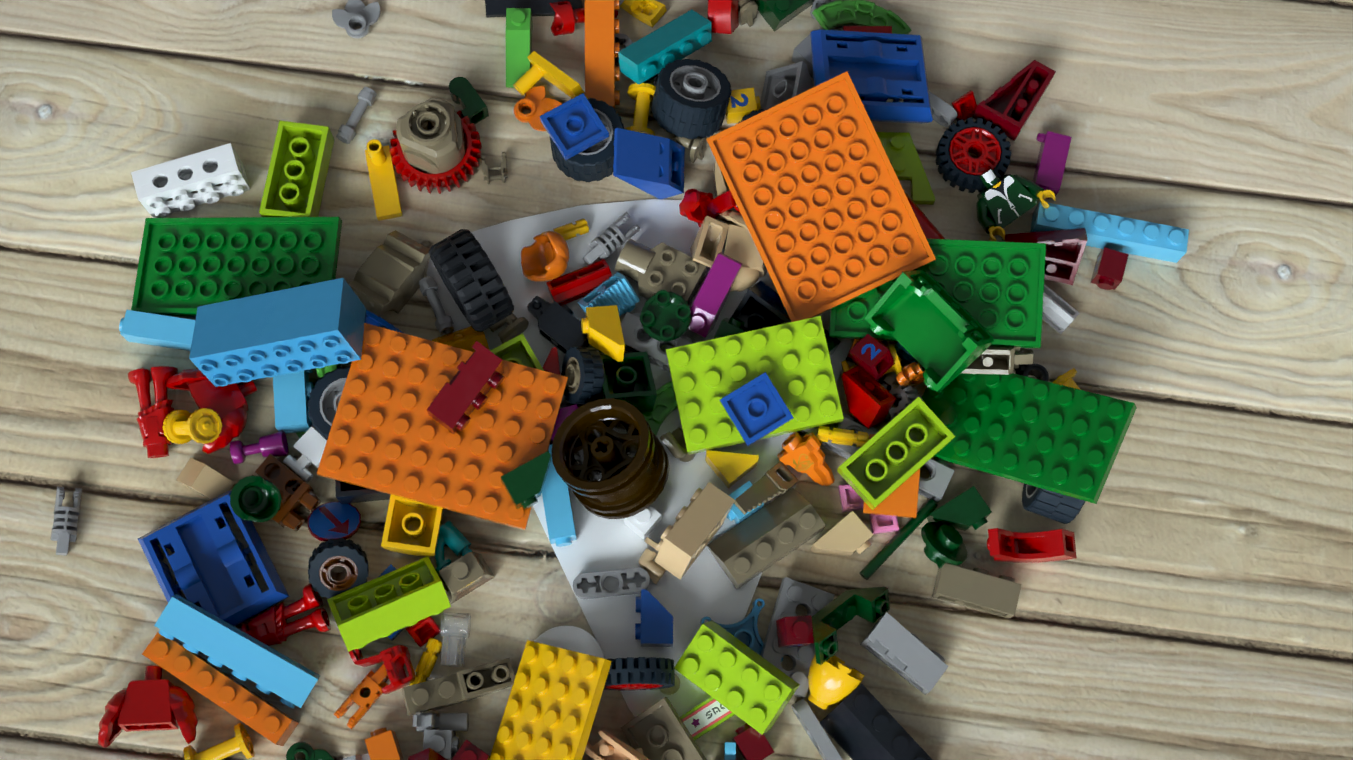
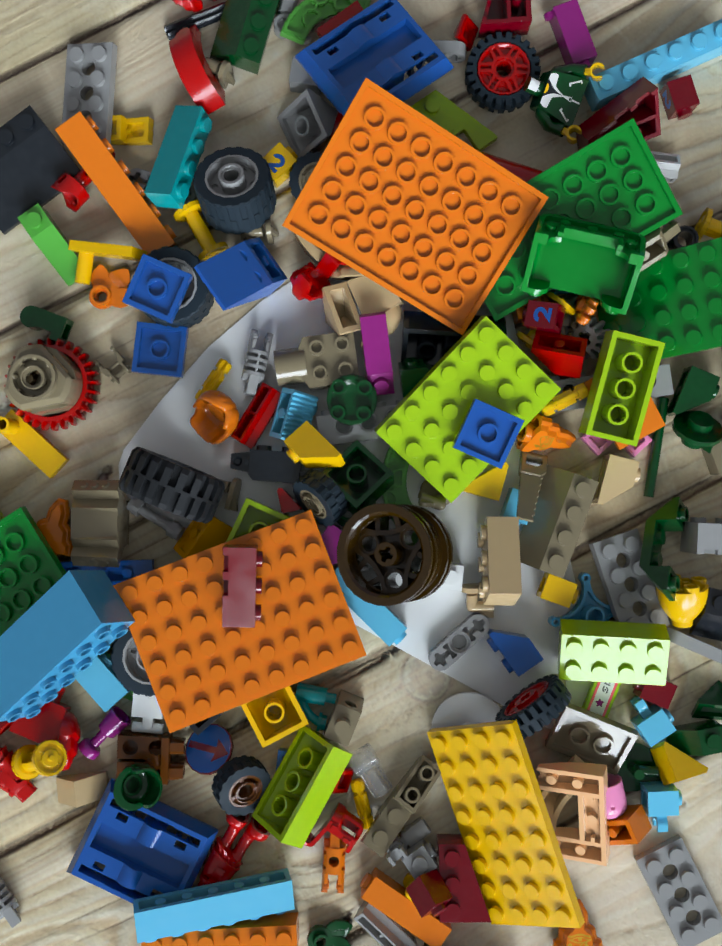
camera: 30 degrees left, 15 degrees up
(353, 256) = (57, 528): none -> orange rock
(527, 481) = (344, 622): dark green slope -> none
(540, 180) = (159, 350): none -> blue plate
(727, 597) = (557, 590): none -> yellow brick
(794, 631) = (634, 586): dark red brick -> none

